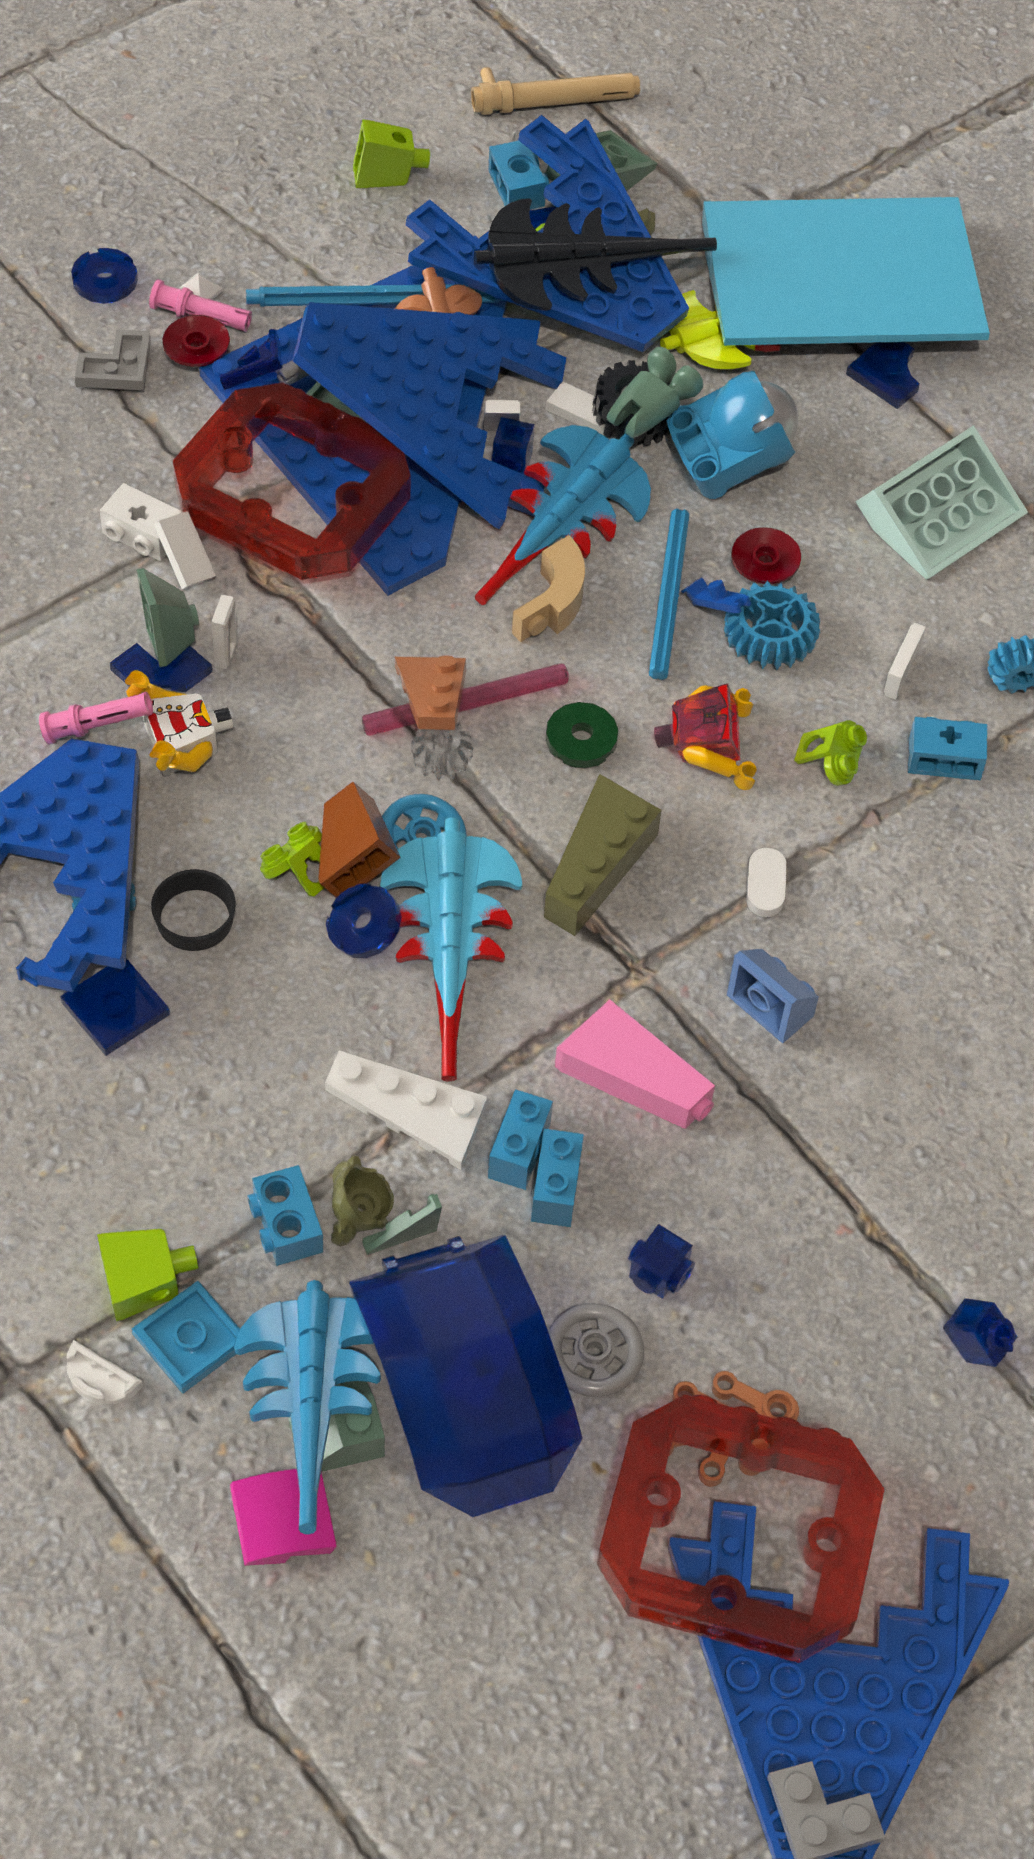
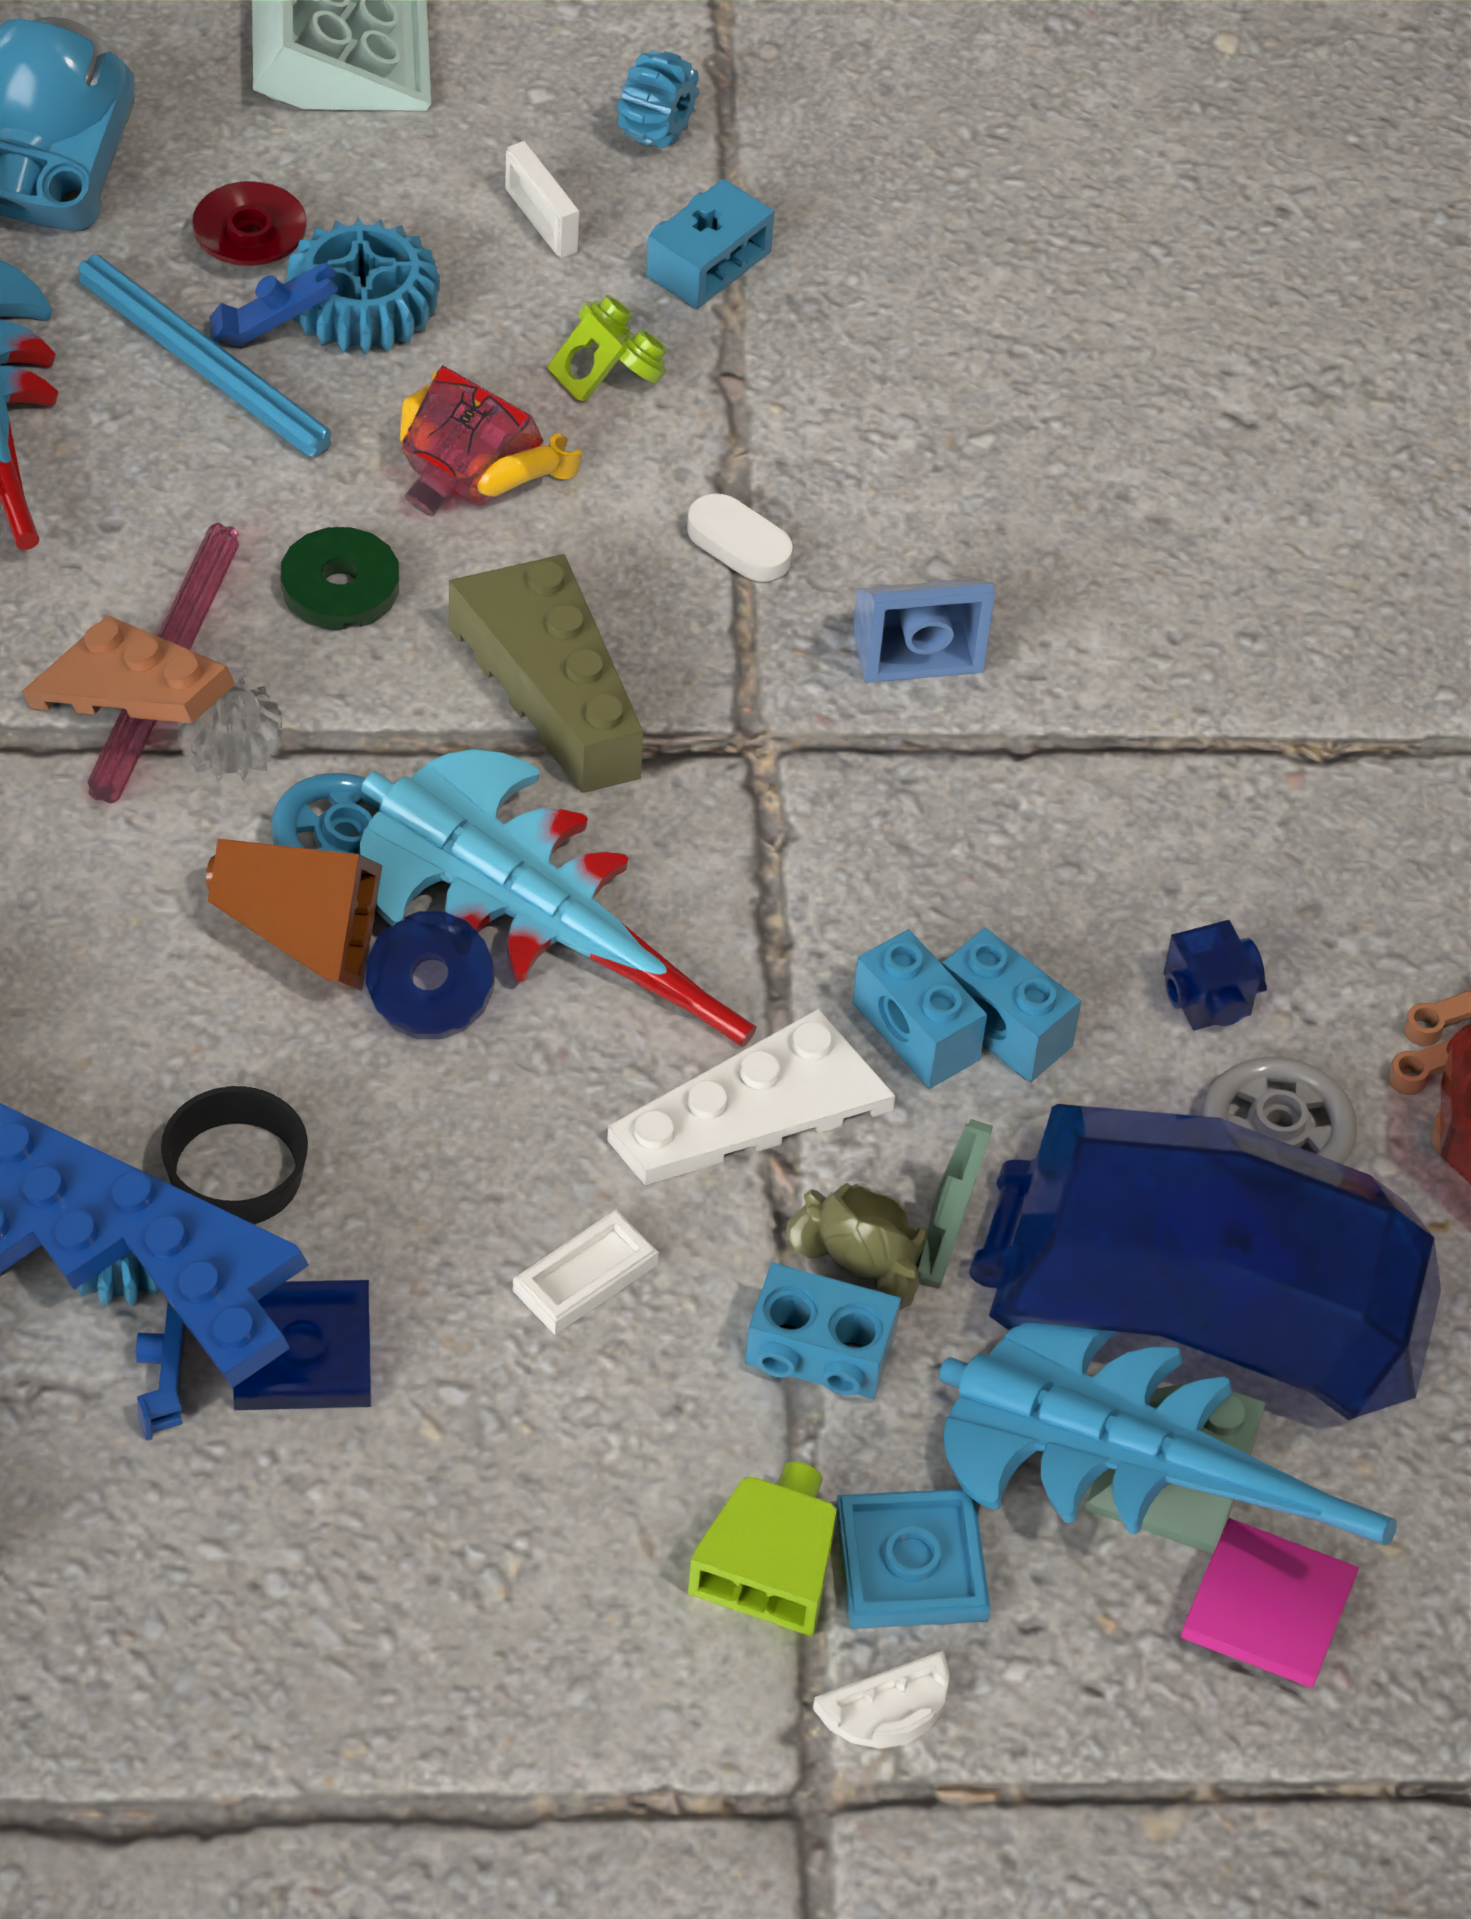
camera: 55 degrees left, 5 degrees down
(249, 1095) = (585, 1272): none -> white tile
(301, 844) = (247, 984): lime bracket -> none
(558, 606) = (96, 444): tan arch -> none
(635, 1066) = (908, 827): bright pink slope -> none

